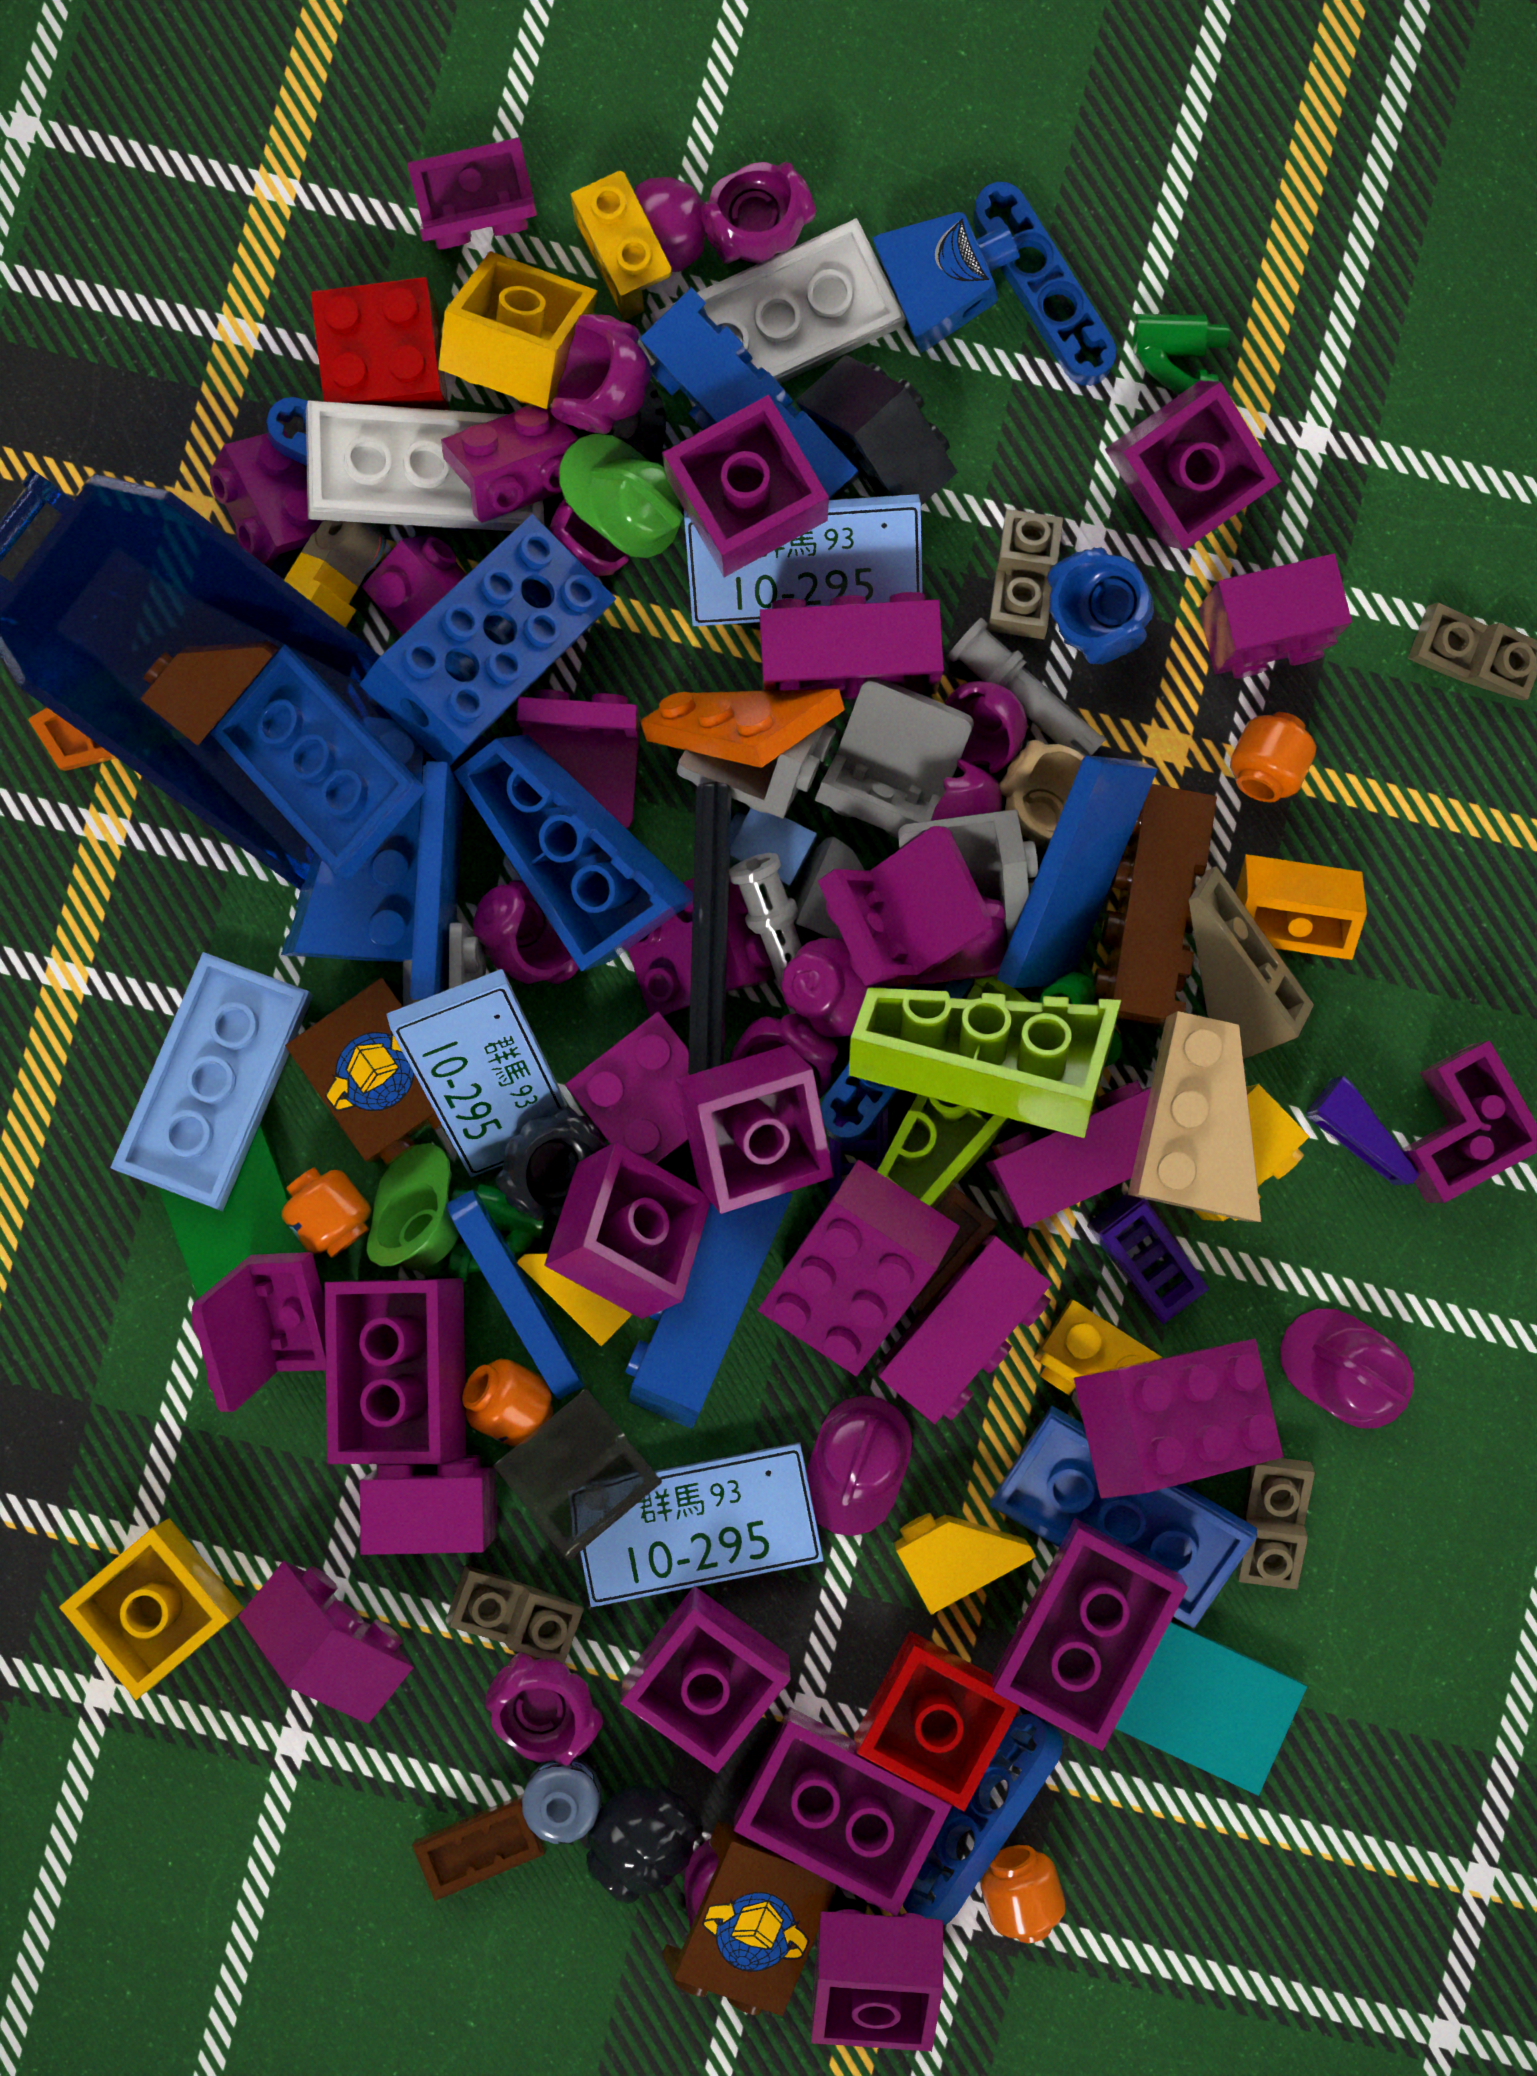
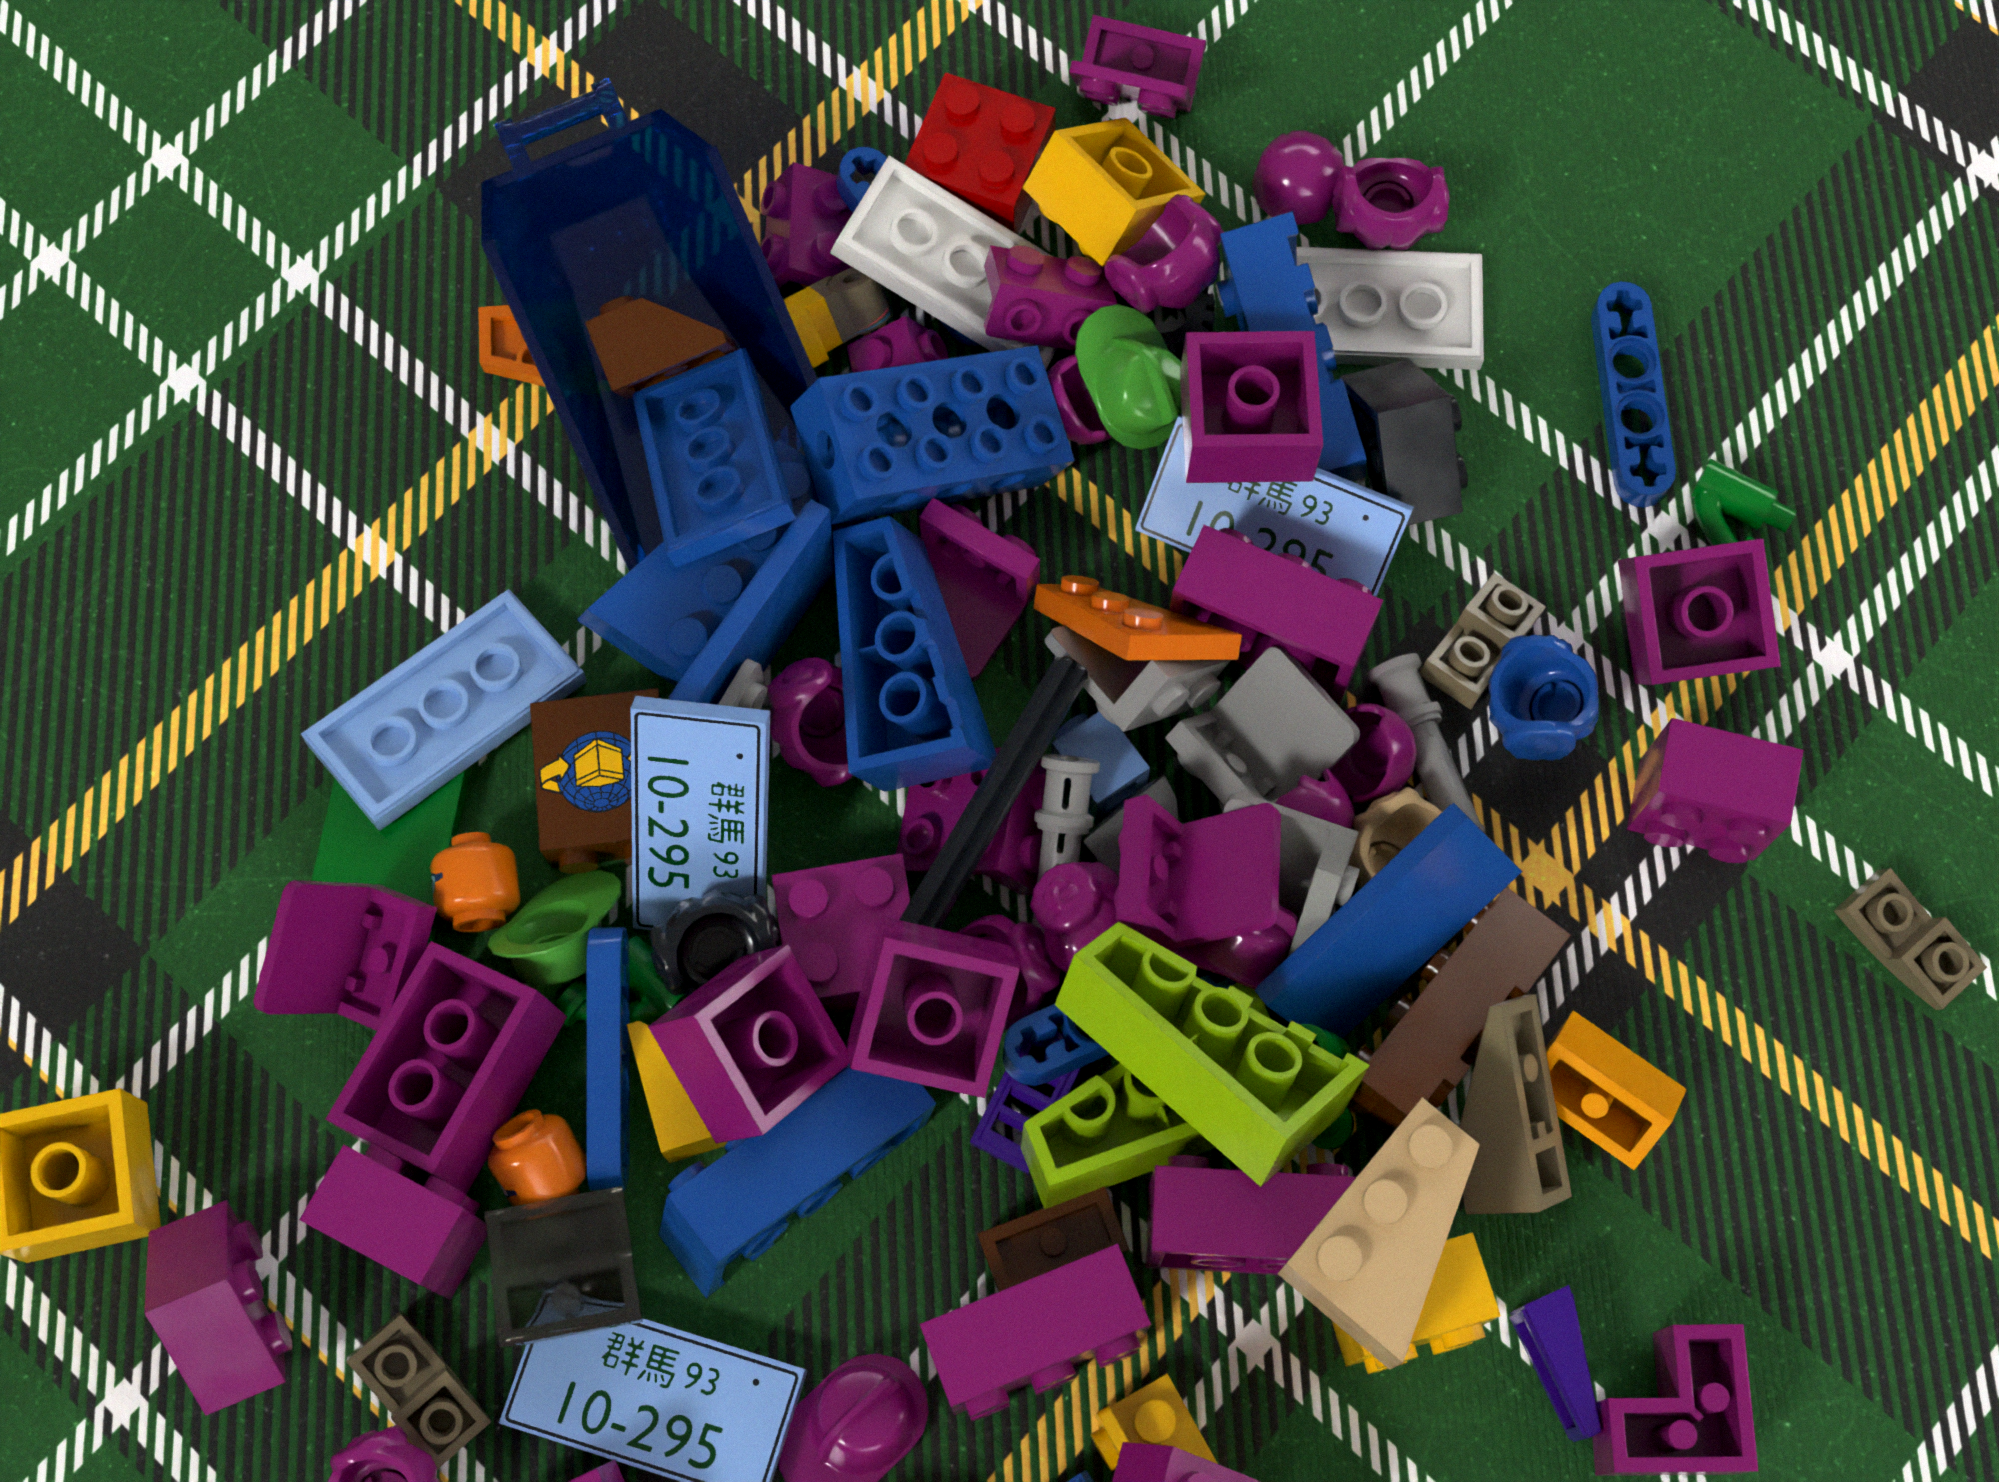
camera: 25 degrees right, 15 degrees down
(620, 240) = (1250, 162): yellow bracket -> none
(859, 1268) = (960, 1206): magenta brick -> none
(943, 273) = (1539, 334): blue torso -> none
(1120, 1216) = (1256, 1312): dark purple slope -> none
(1272, 757) = (1647, 931): orange head -> none

